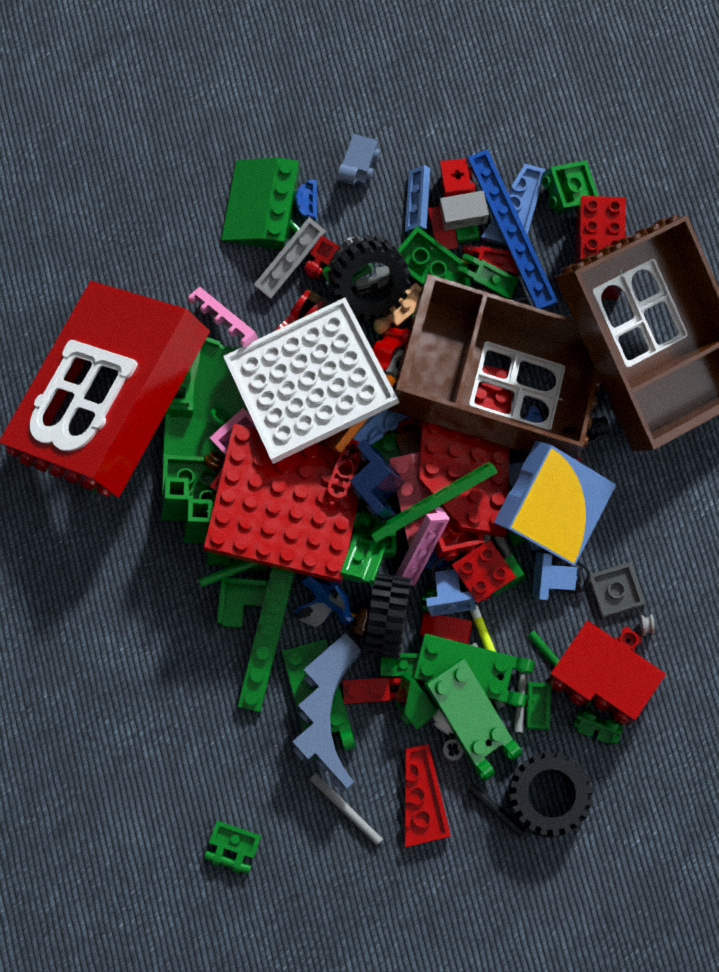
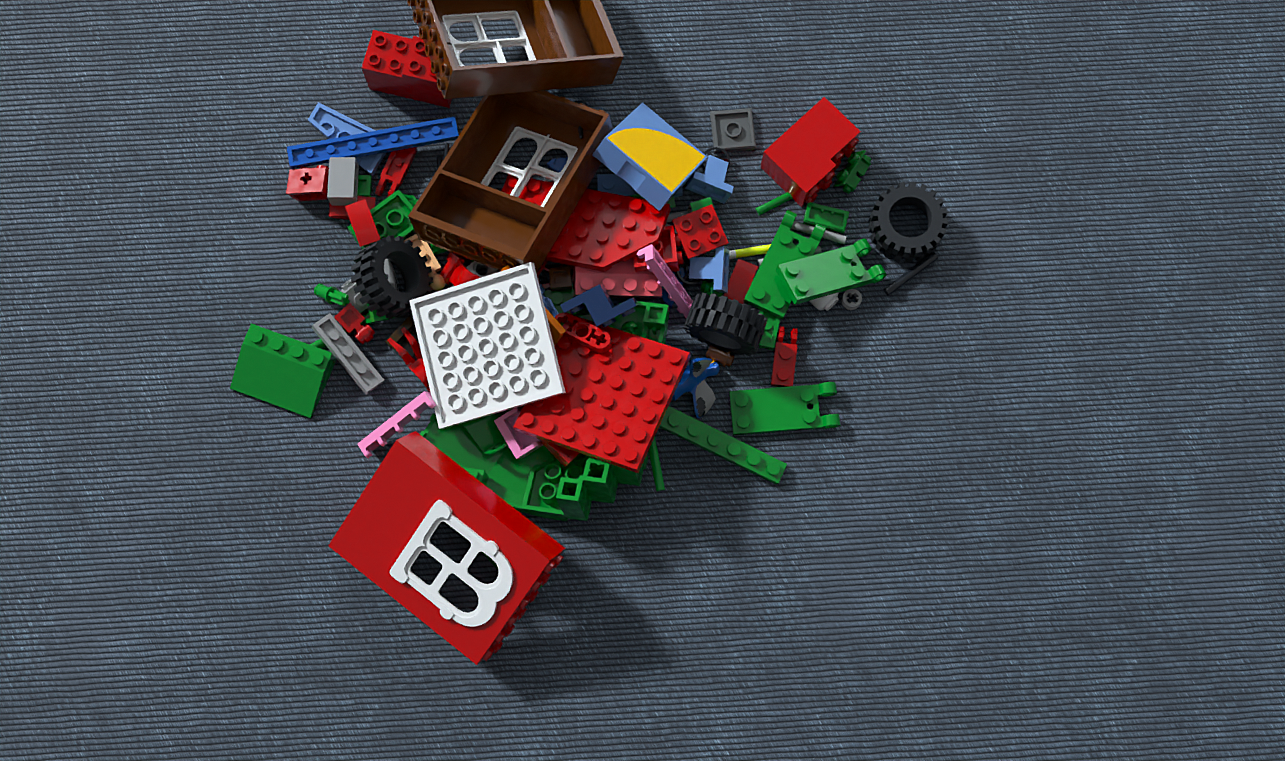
camera: 85 degrees left, 0 degrees up
(214, 461) = (539, 459): reddish brown plate -> none
(235, 840) = (901, 508): green plate -> none
(236, 594) = (674, 467): green panel -> none
(306, 200) = (291, 327): blue plate -> none
(317, 740) = (798, 407): sand blue arch -> none
(345, 228) = (331, 295): none -> green axle
(346, 809) = (888, 404): light grey bar -> none
(359, 161) = (264, 270): sand blue hinge -> none
(363, 560) = (673, 331): green plate -> none
(413, 702) = (805, 322): green slope -> none
(417, 198) = (317, 224): medium blue plate -> none
(422, 237) = (362, 222): none -> red slope
(423, 801) = (893, 333): red wing -> none
(433, 501) = (631, 257): green tile -> none
(489, 276) = (413, 174): green hinge -> none
(567, 185) = (341, 84): green plate -> none
(628, 634) = (779, 124): red plate -> none
(647, 625) = (770, 110): light grey bush -> none

